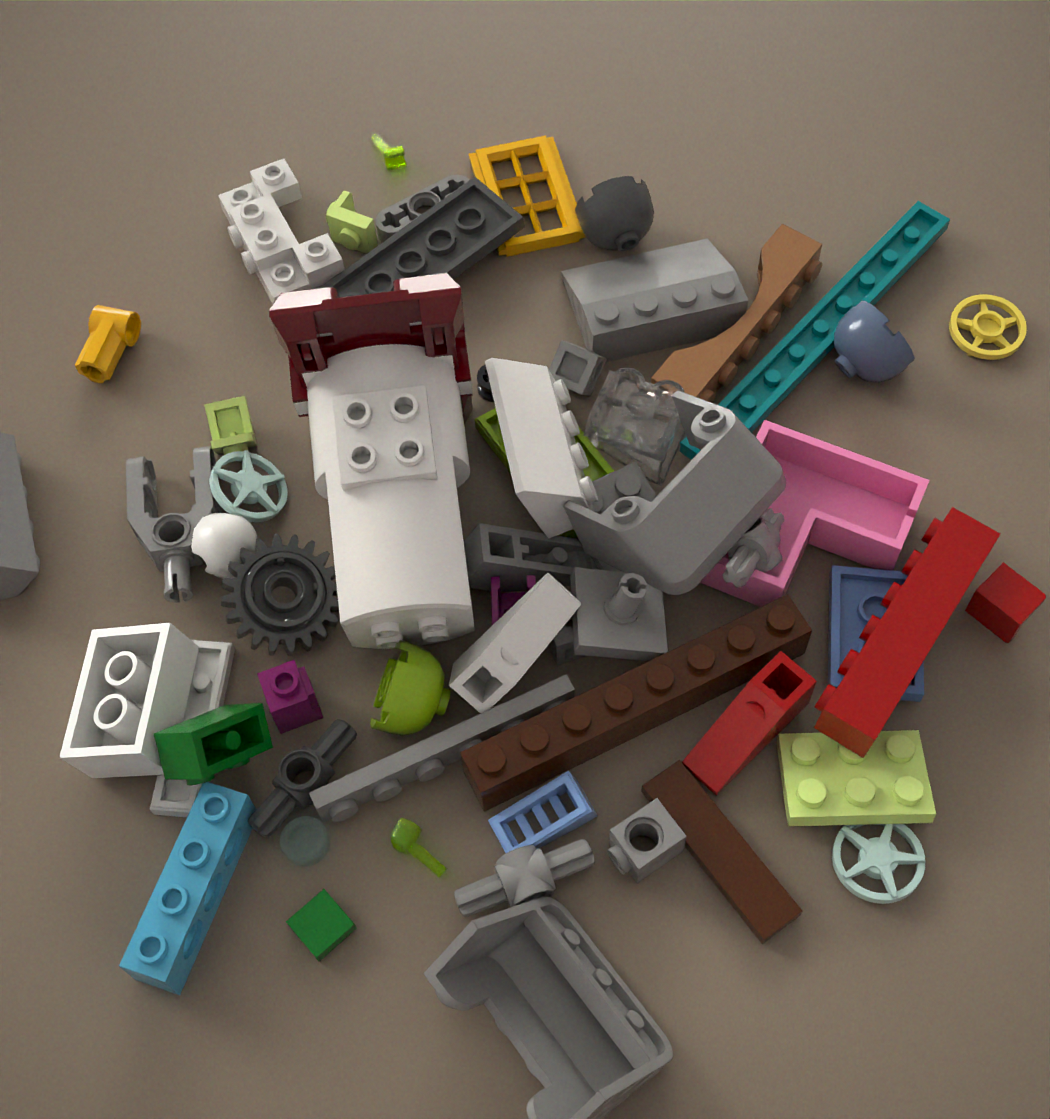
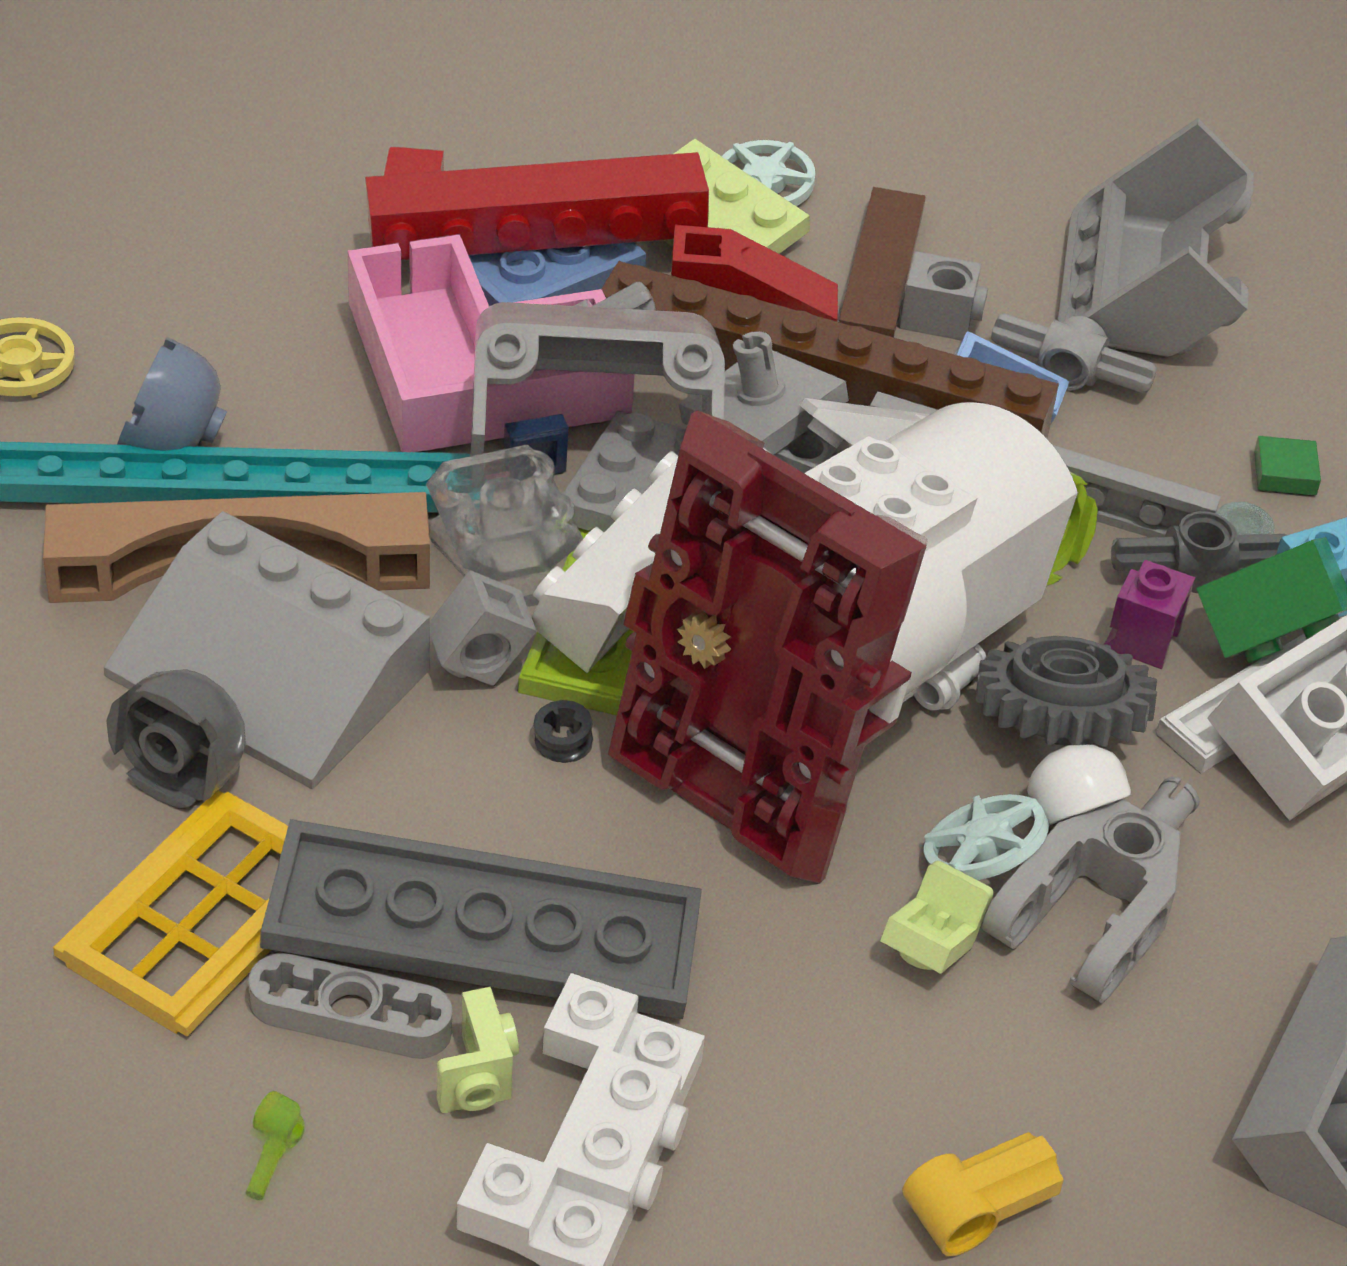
camera: 140 degrees left, 15 degrees down
(404, 840) = (1145, 452): clear neon green hand -> none

